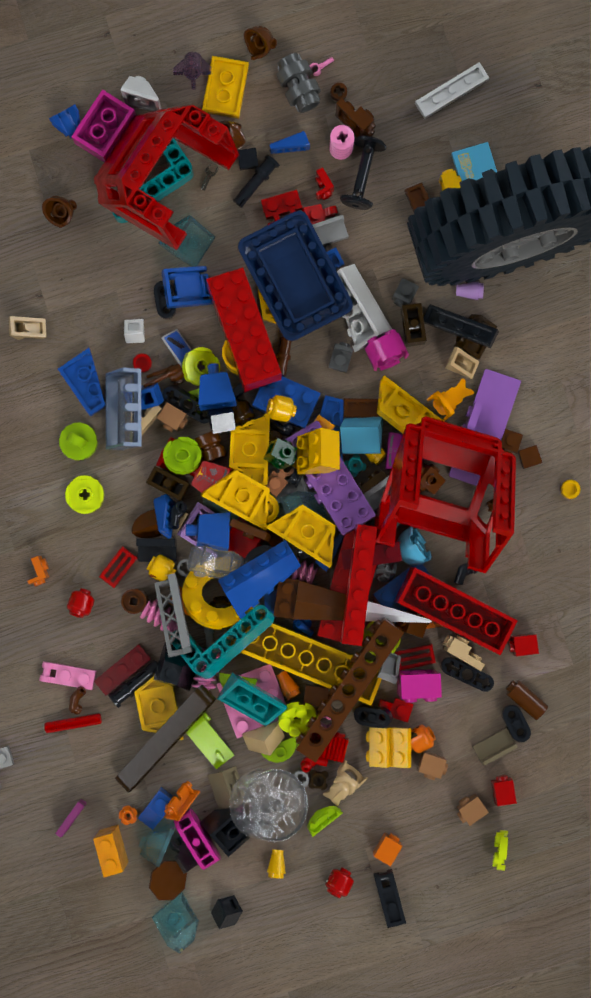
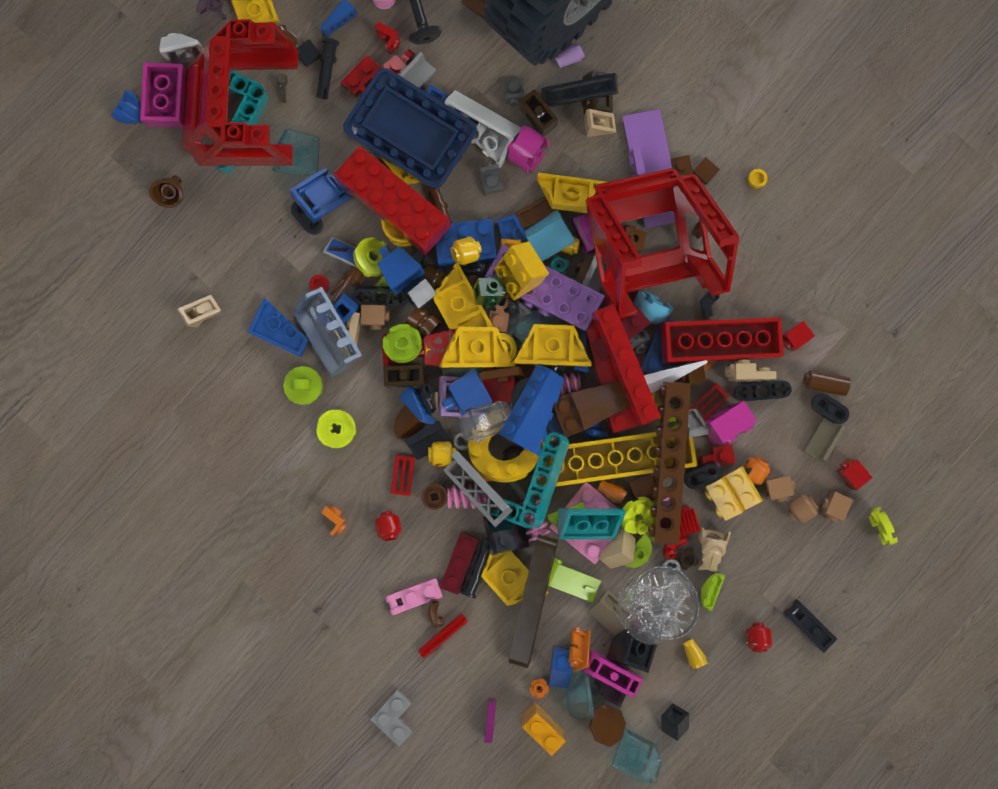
camera: 30 degrees left, 0 degrees up
(134, 331) = (296, 260): white slope -> none
(388, 848) = (783, 583): orange brick -> none
(442, 795) = (803, 508): none -> medium nougat head
(446, 402) = (605, 165): light orange hair -> none

